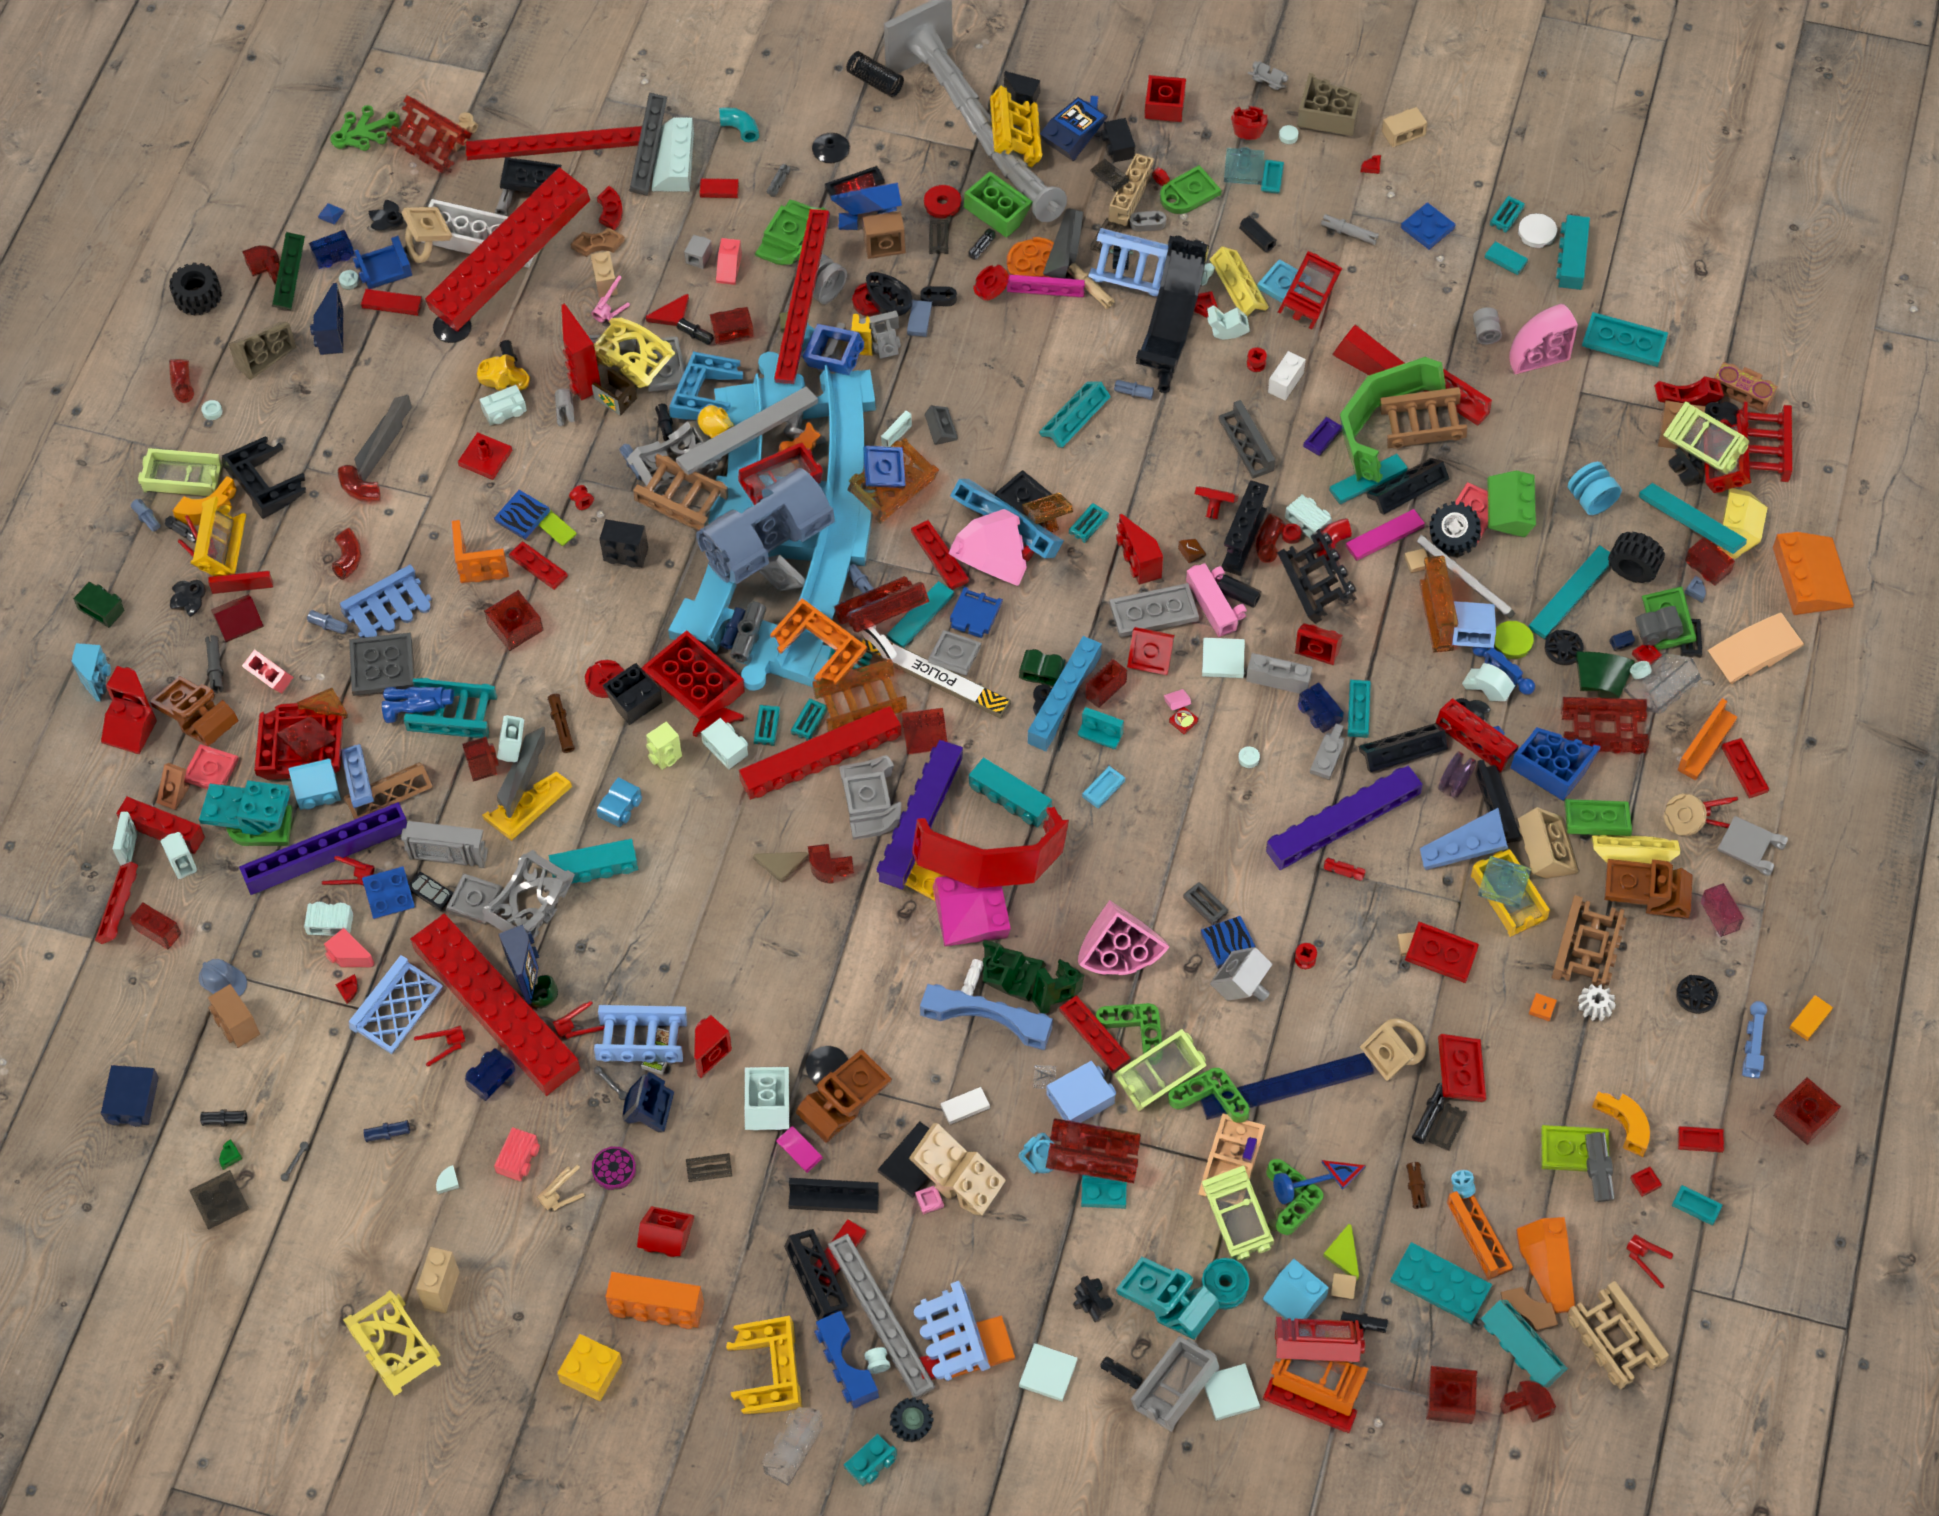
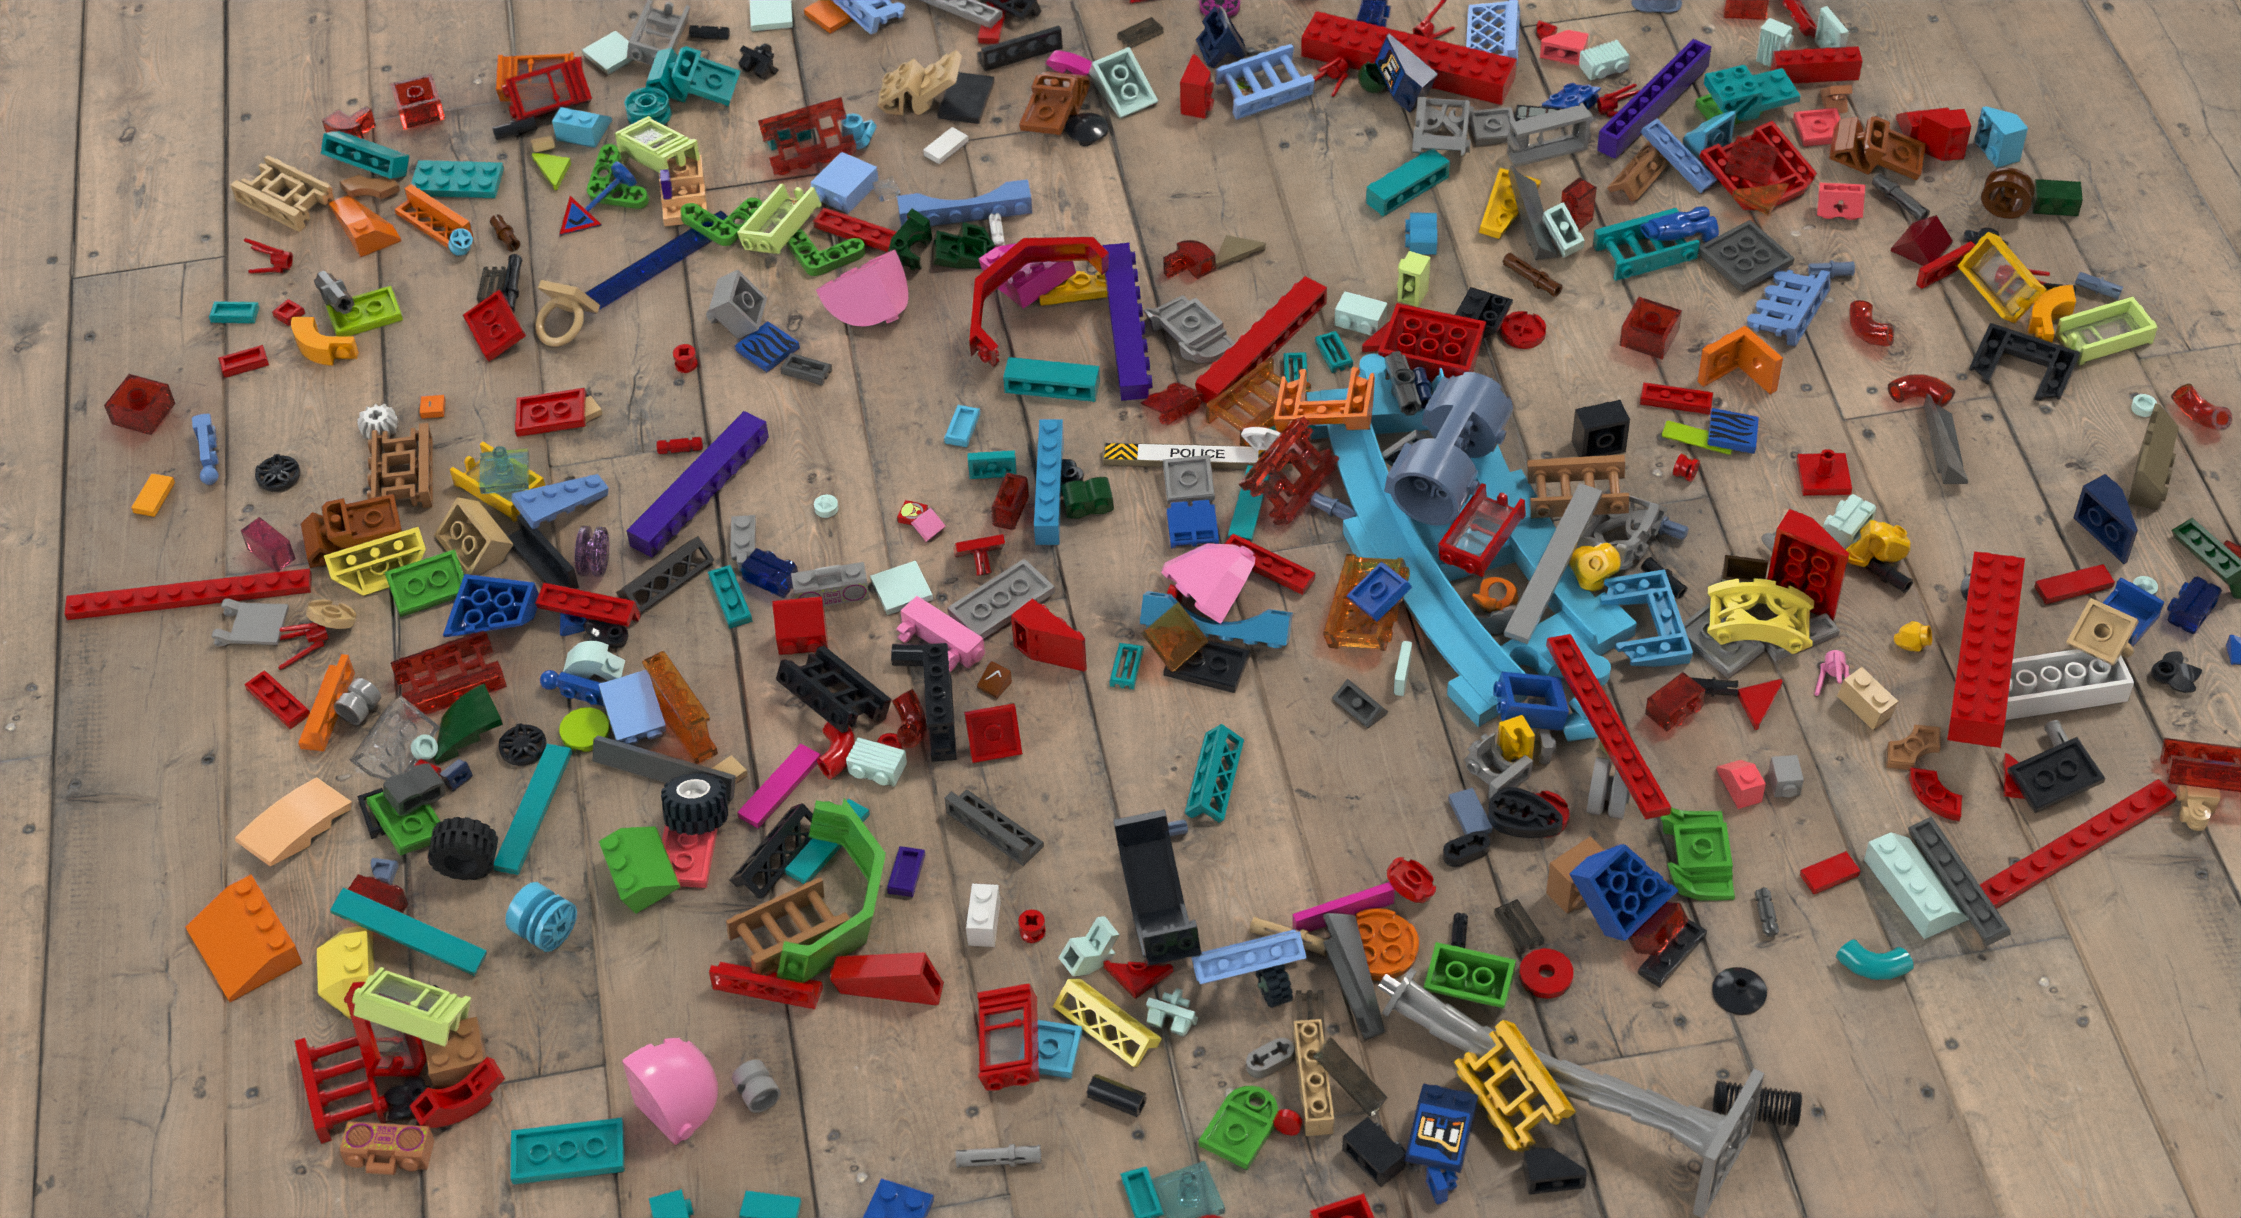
camera: 155 degrees right, 10 degrees down
(139, 611) = (2007, 193): none -> reddish brown wheel
(535, 304) = (1913, 636): none -> yellow rock
(1682, 727) = (358, 701): none -> light grey wheel
(1800, 900) = (188, 594): none -> red plate

